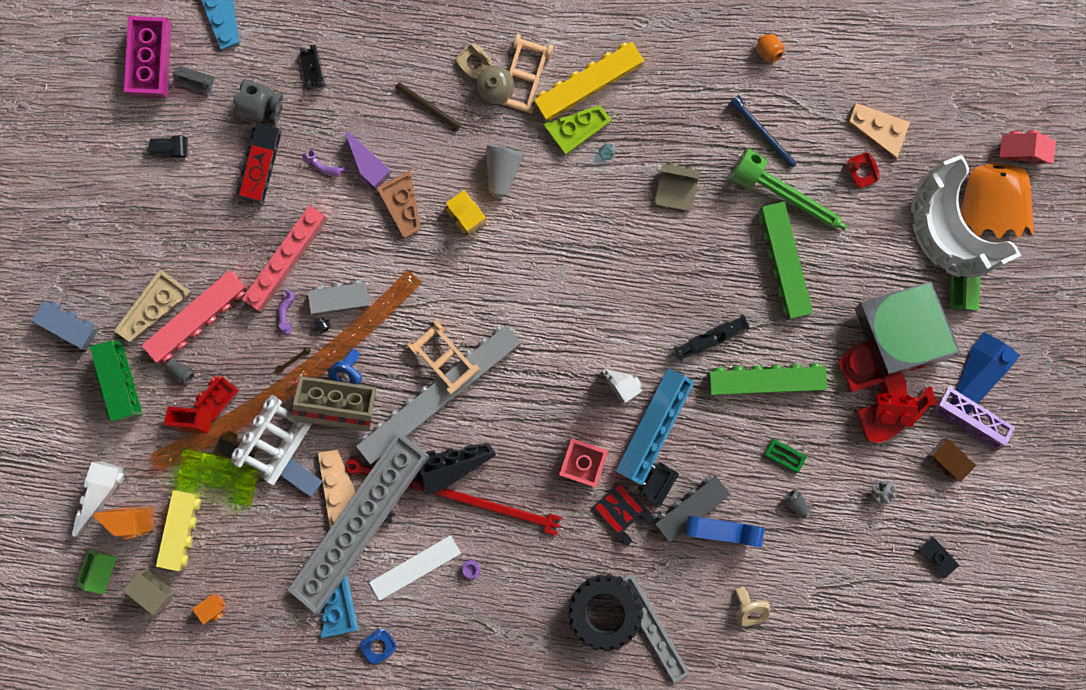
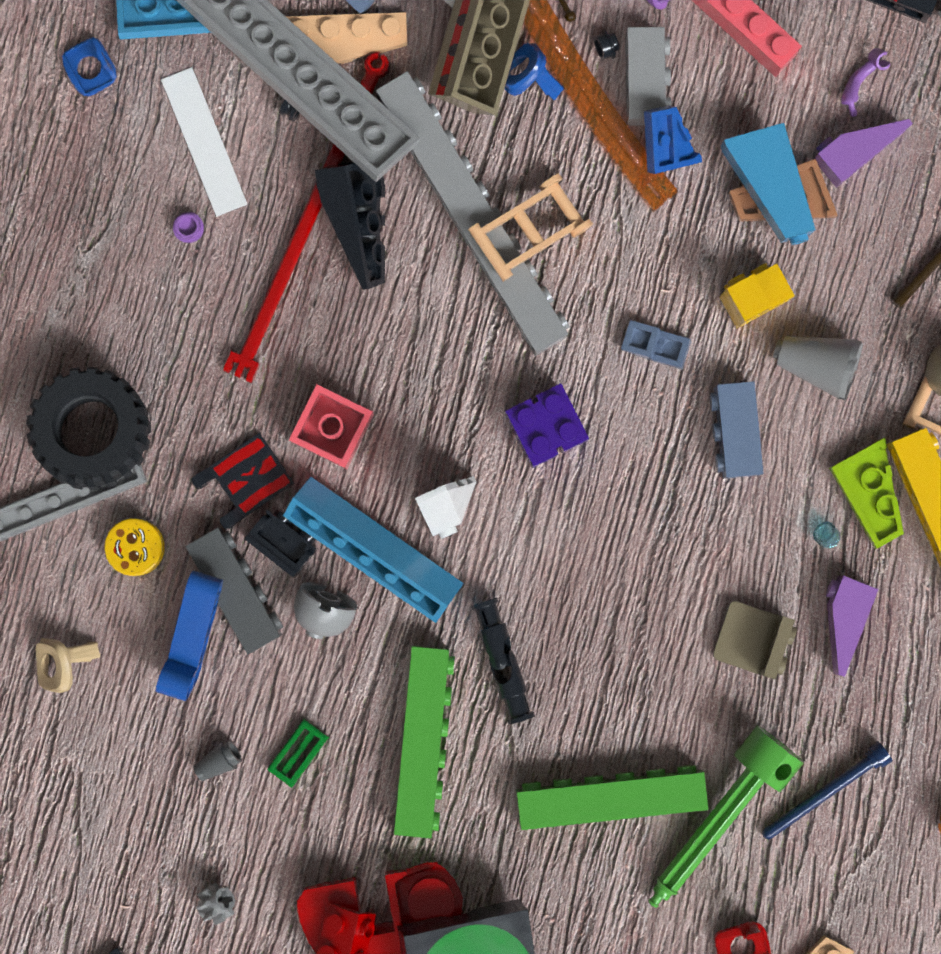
camera: 90 degrees right, 0 degrees up
(379, 279) = (667, 141): none -> blue wing
(393, 212) = (772, 179): none -> dark azure slope
(504, 270) = (656, 345): none -> sand blue slope
(551, 214) = (737, 430): none -> sand blue brick
(564, 330) = (546, 425): none -> dark purple piece
(653, 132) = (847, 614): none -> medium lavender slope
(673, 574) = (134, 547): none -> yellow head
(697, 452) = (322, 611): none -> light grey cylinder

